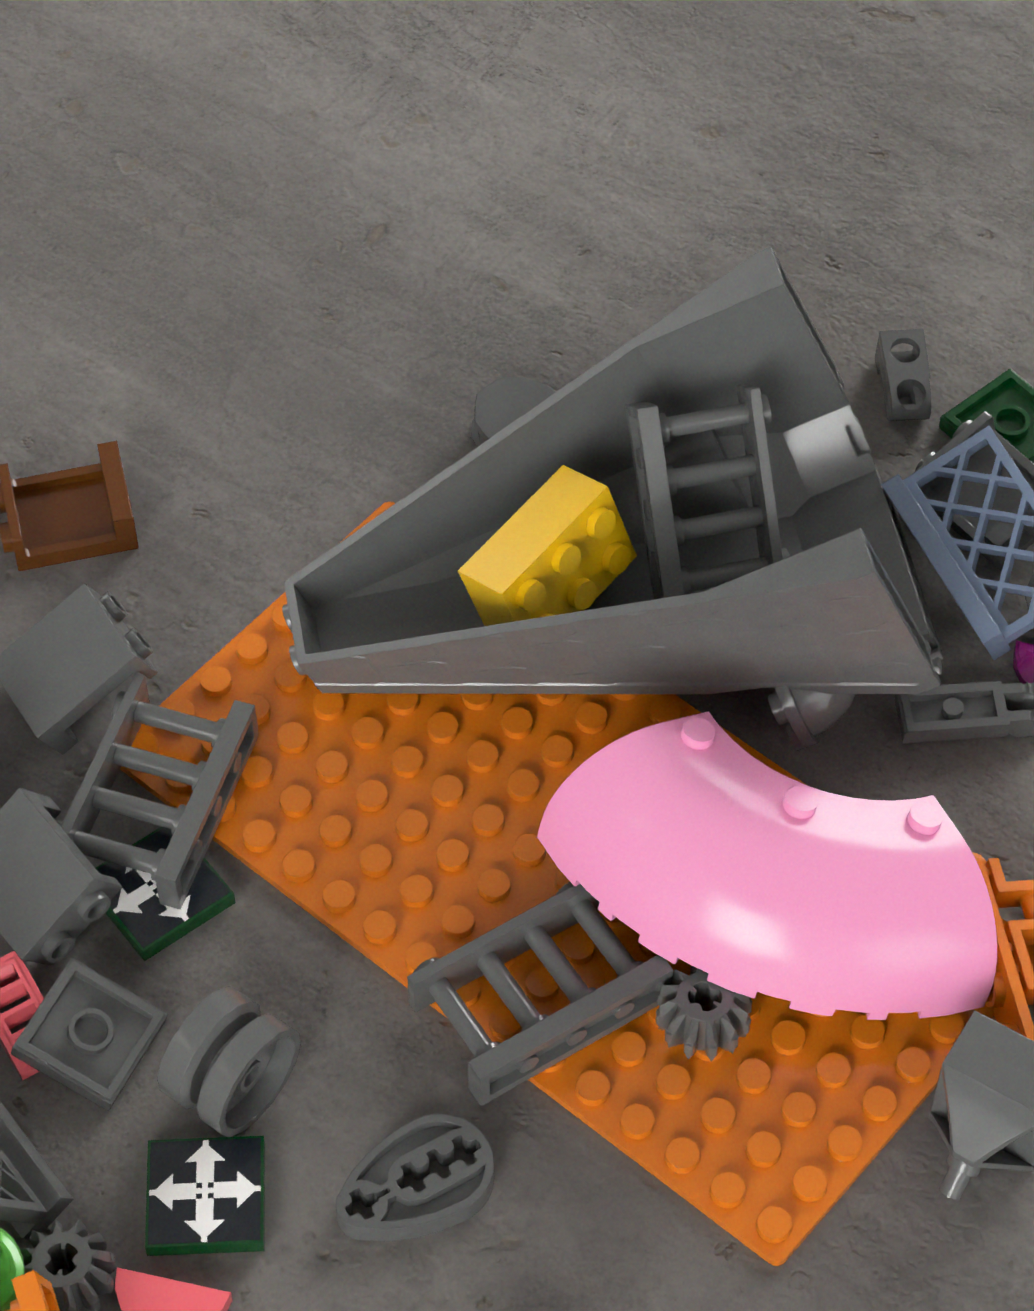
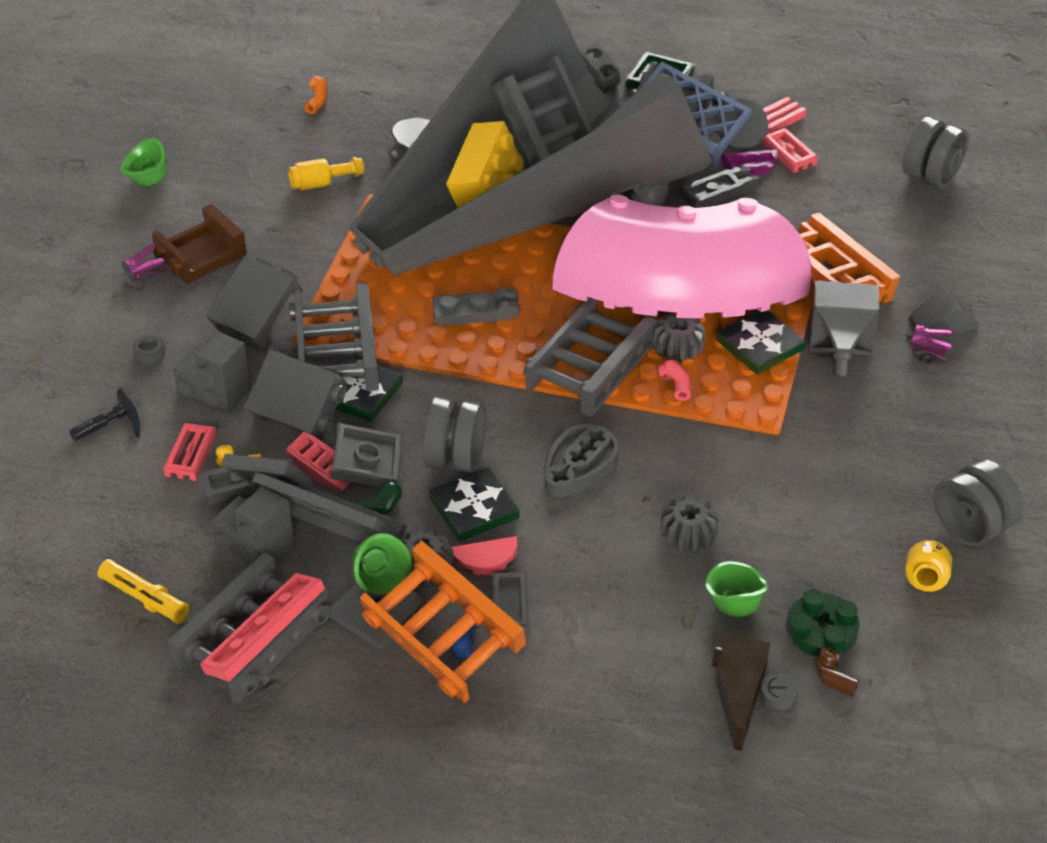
camera: 25 degrees left, 10 degrees down
(67, 317) = (146, 163): none -> bright green helmet
(72, 1131) = (385, 500): none -> dark green arm
(327, 432) = (318, 172): none -> yellow piece
(414, 808) = (476, 307): none -> dark grey hinge
(419, 270) = (320, 95): none -> orange arm
(664, 1092) = (682, 379): none -> coral arm
(843, 1072) = (760, 341): none -> tile

